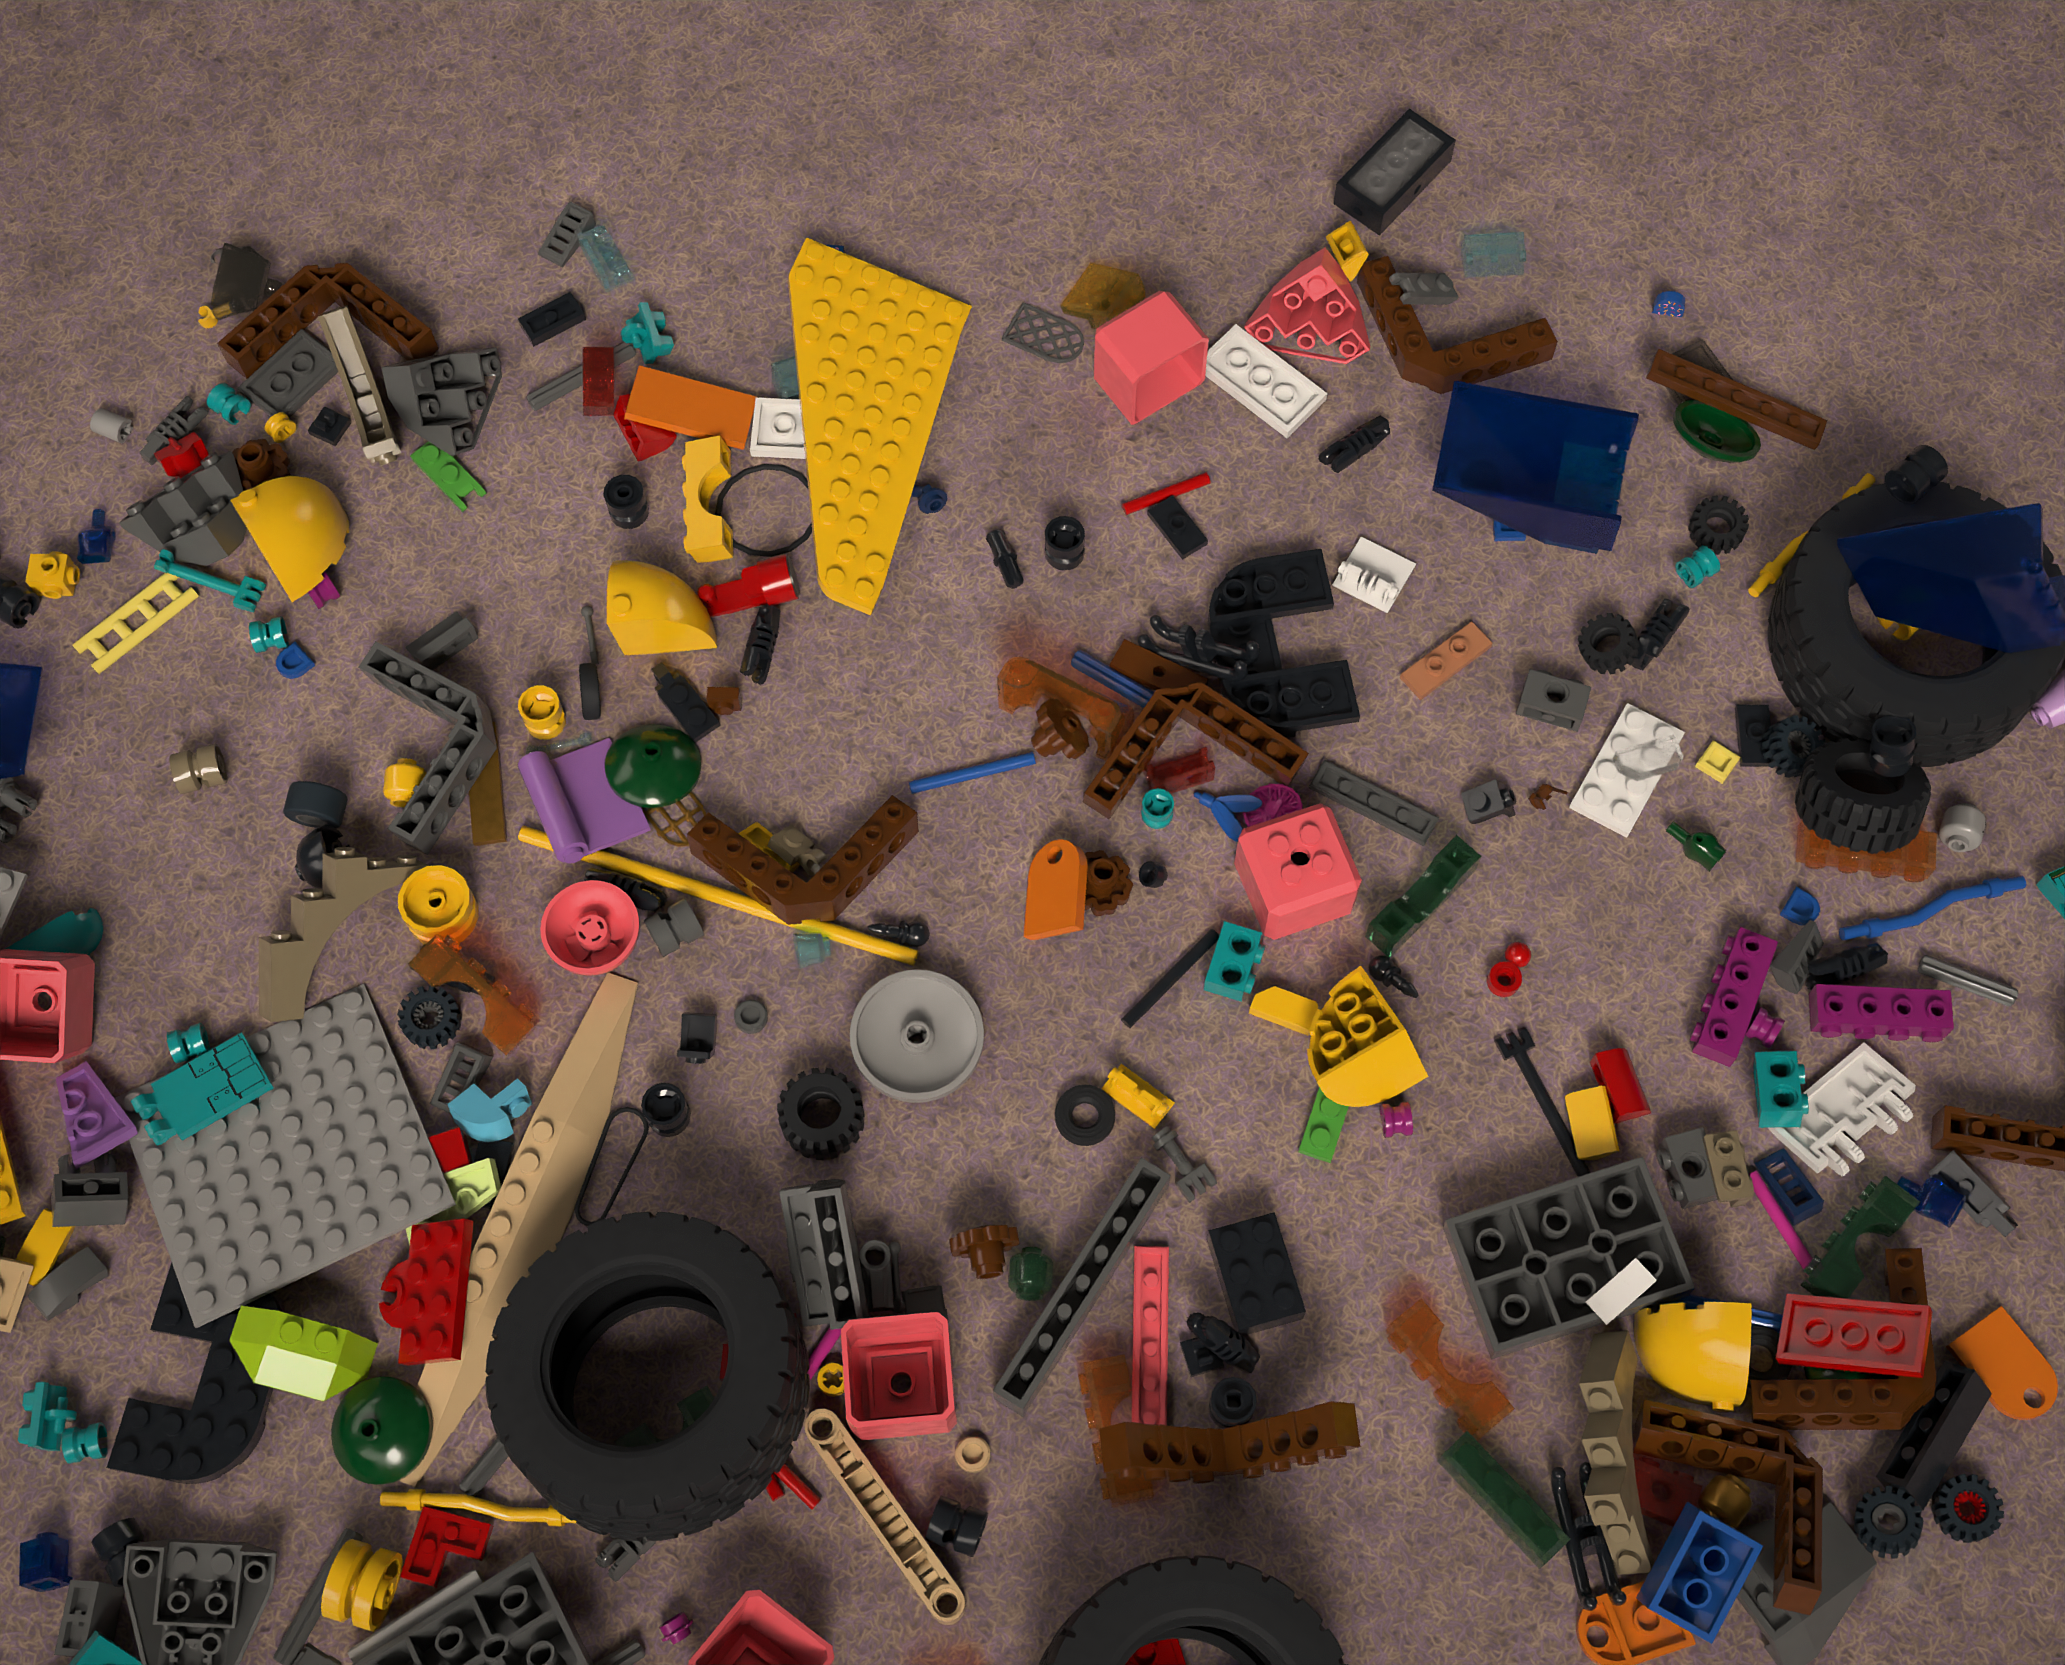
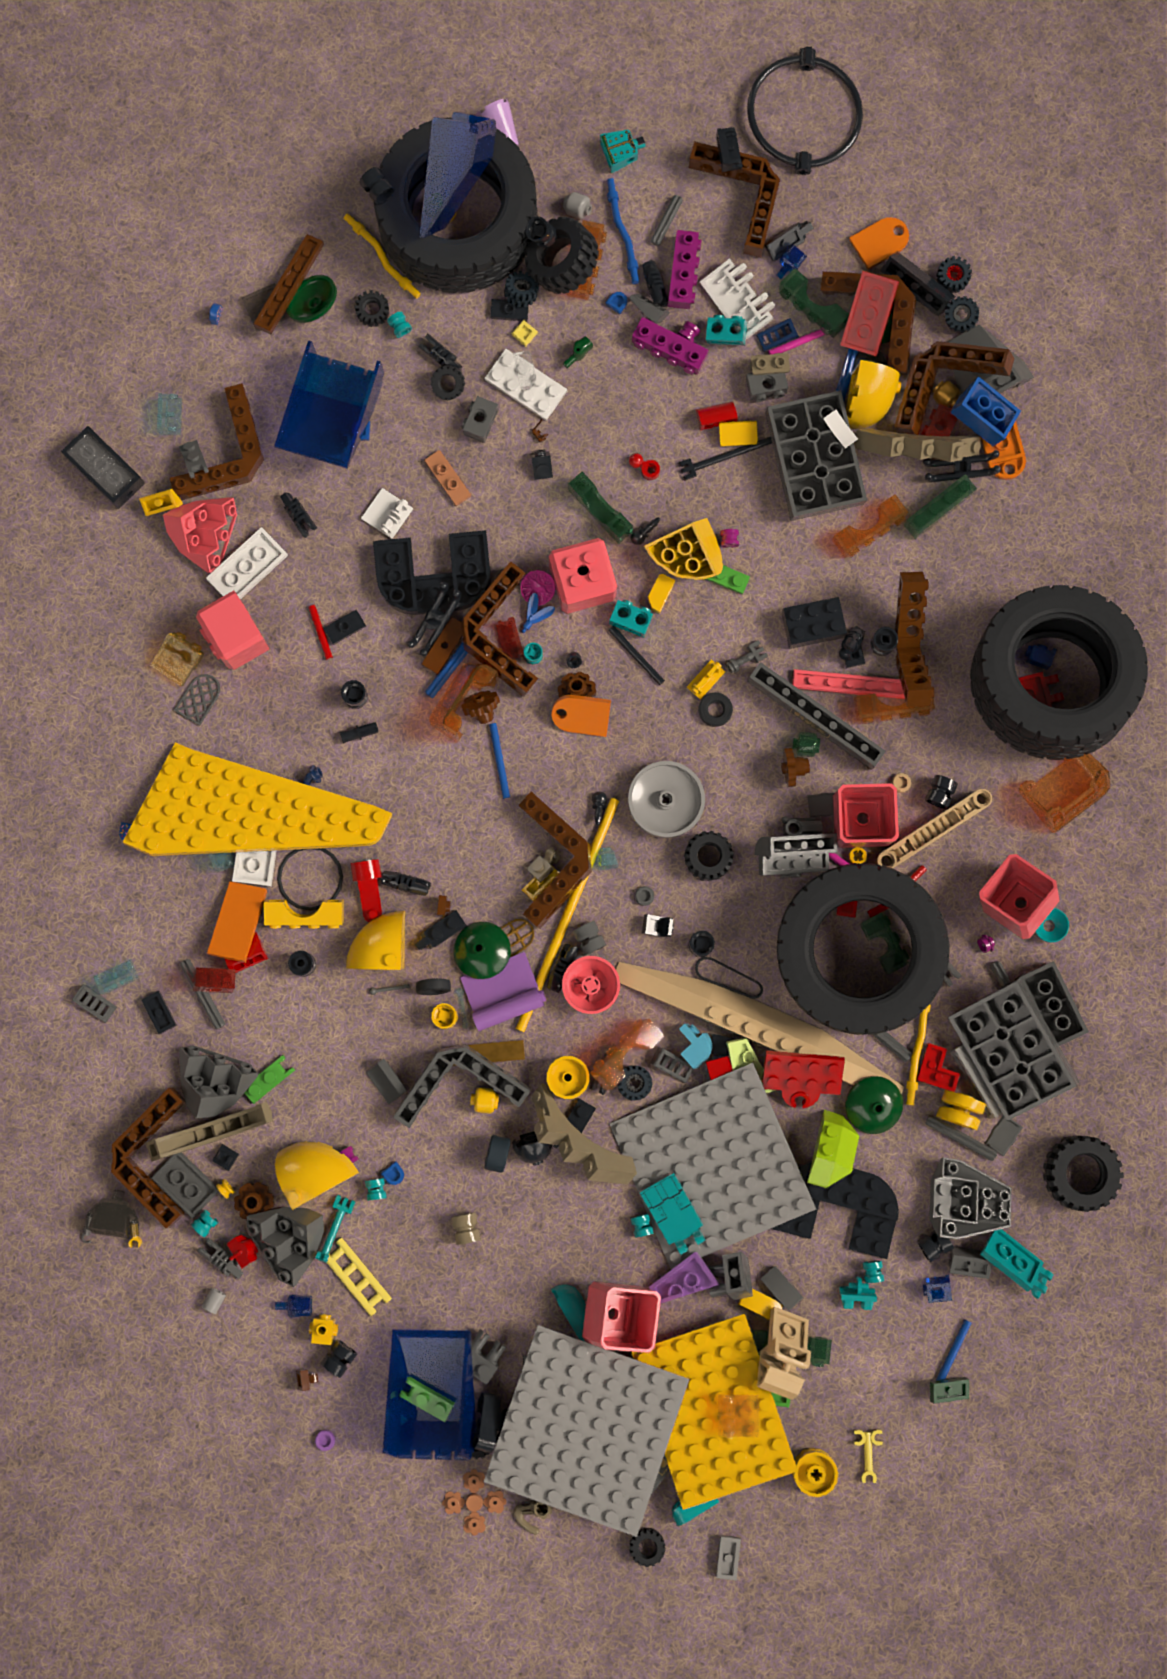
camera: 90 degrees left, 15 degrees up
(372, 934) = (580, 1116): none -> black hinge
(643, 333) = (178, 951): teal hips -> none
(1374, 802) = (536, 530): dark grey tile -> none

